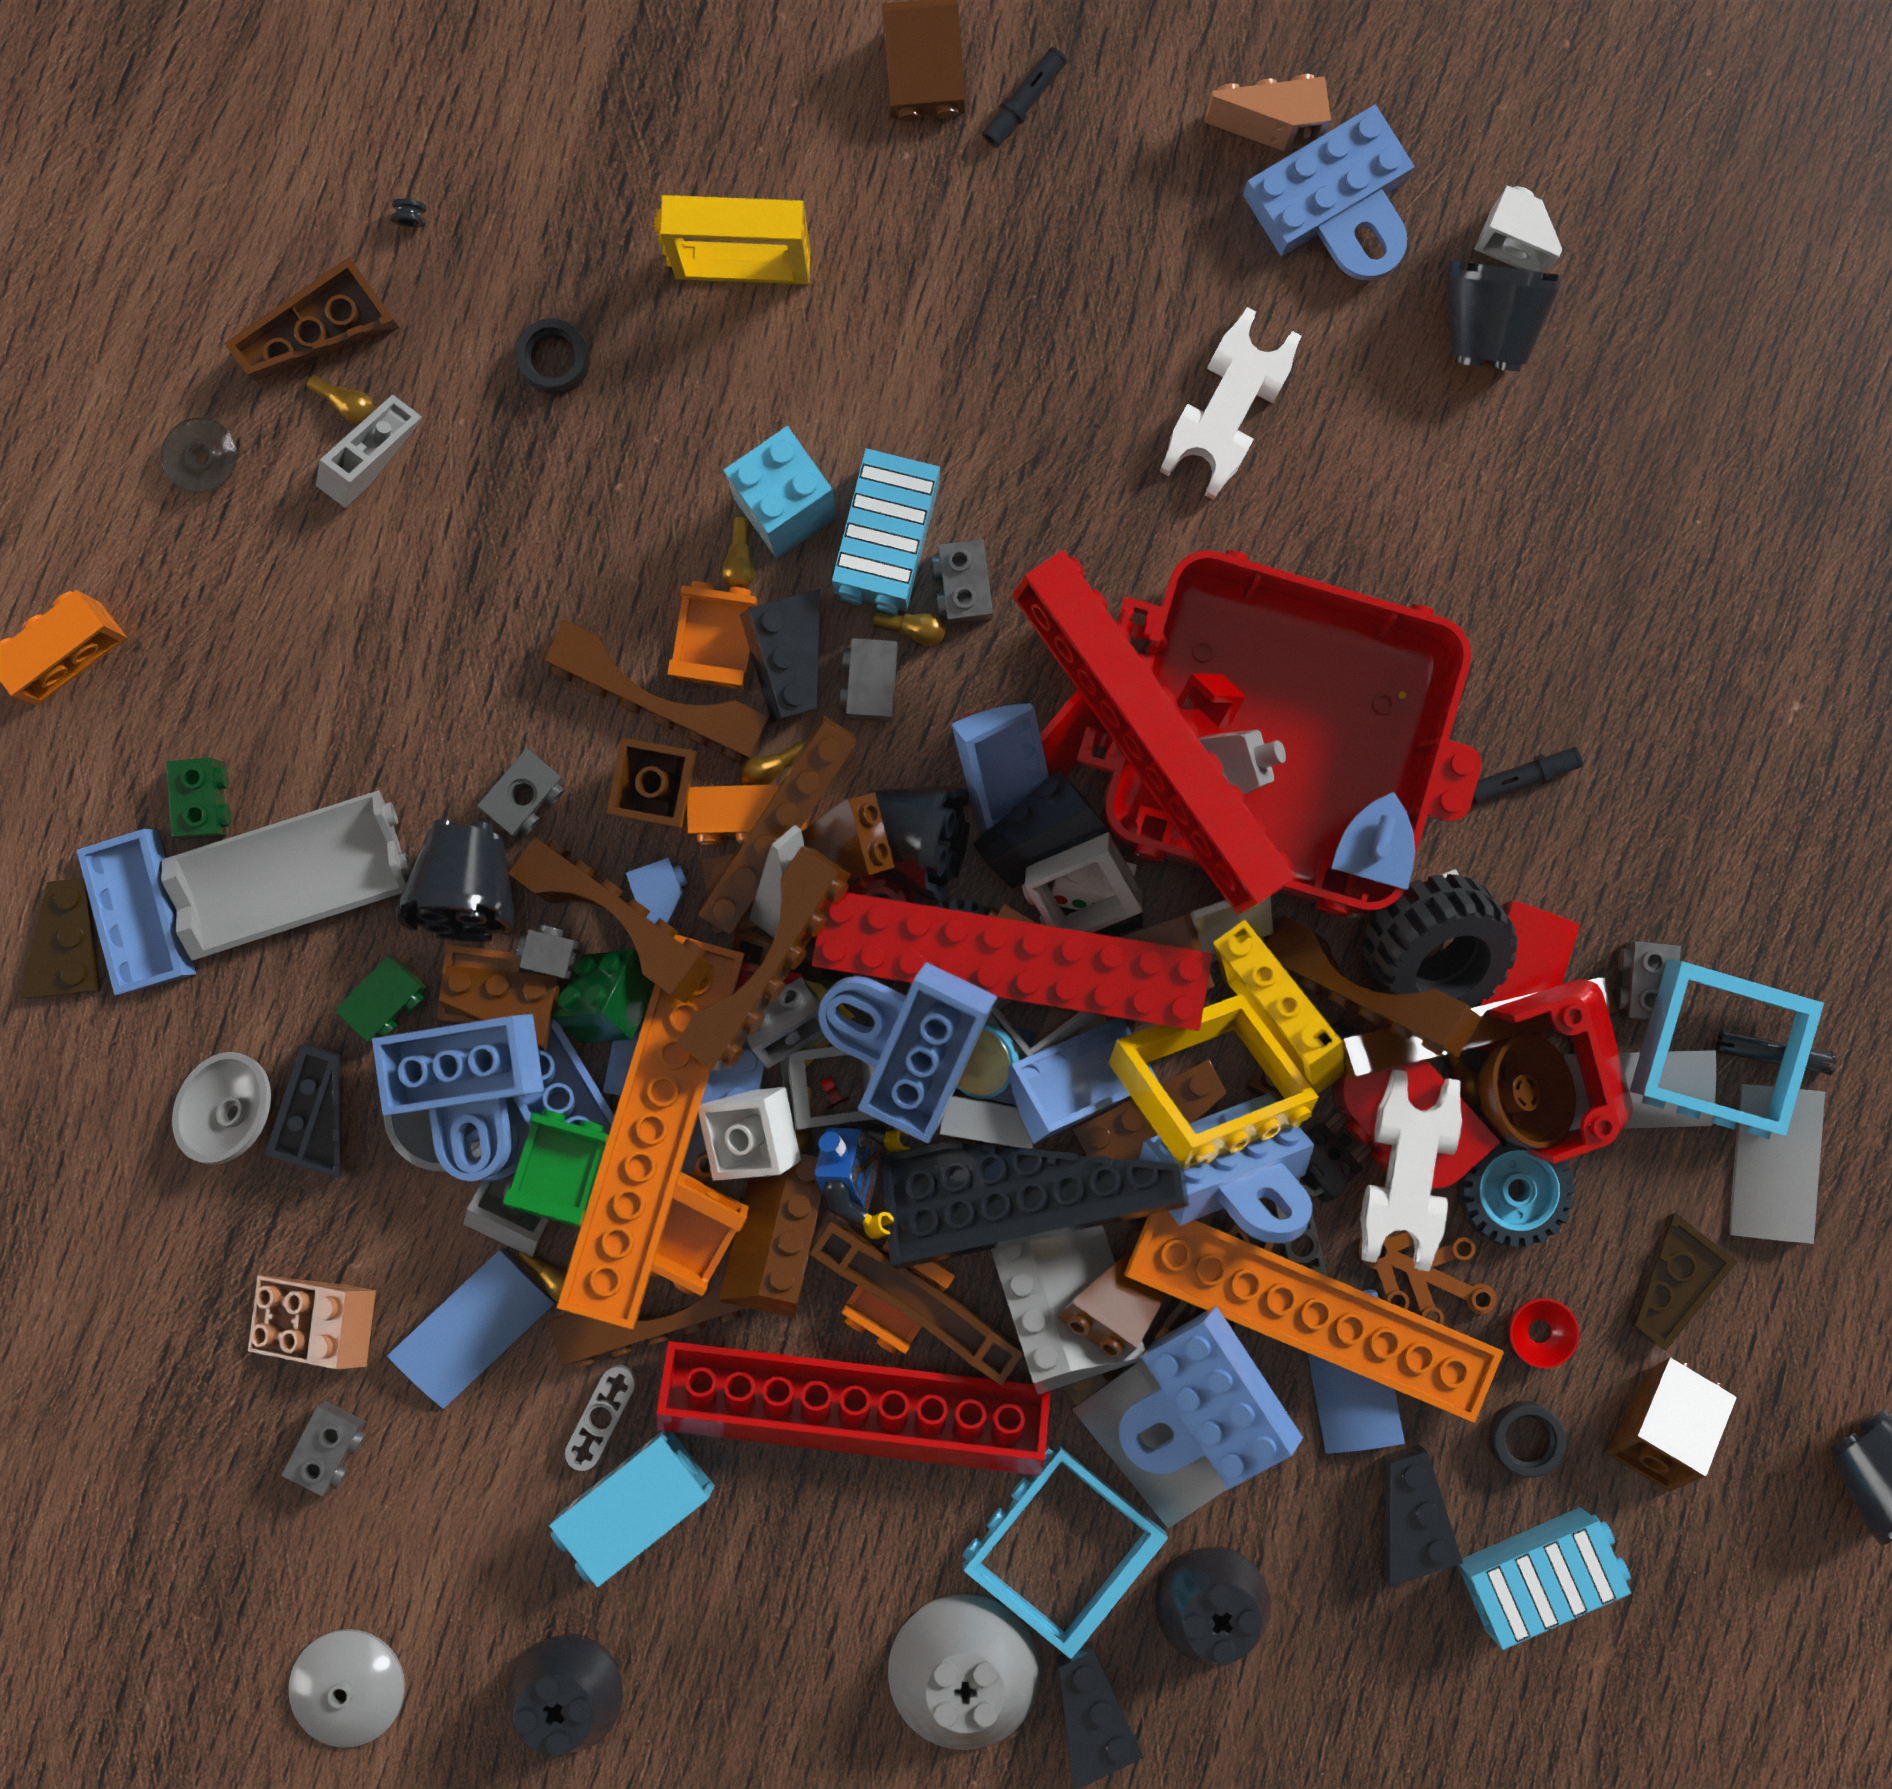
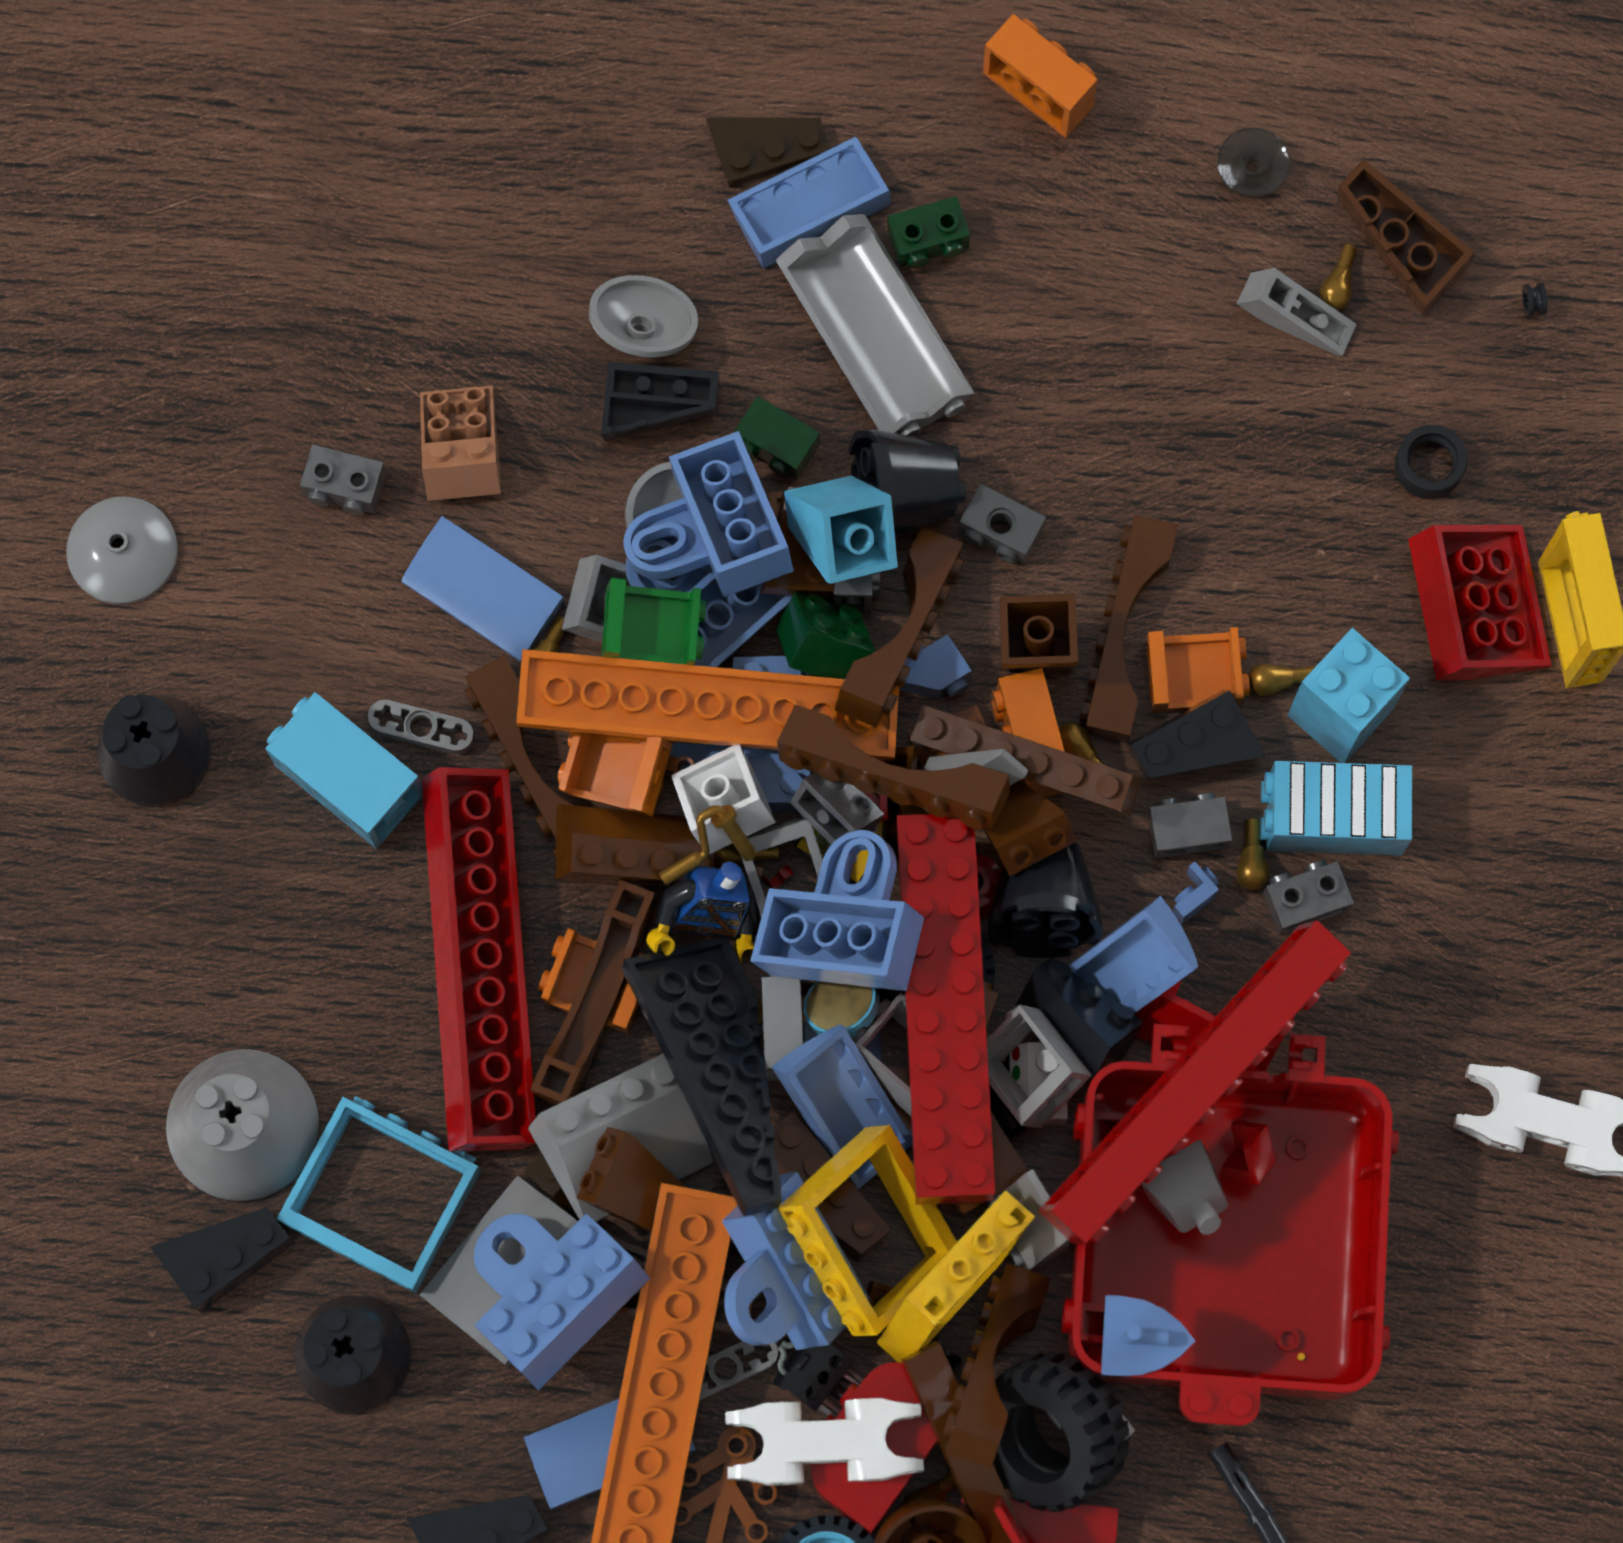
camera: 85 degrees right, 10 degrees down
(498, 954) = (843, 527): none -> medium azure slope
(705, 345) = (1478, 601): none -> red slope
(776, 1140) = (721, 817): none -> pearl gold piece
(943, 694) = (1193, 900): none -> medium blue bracket

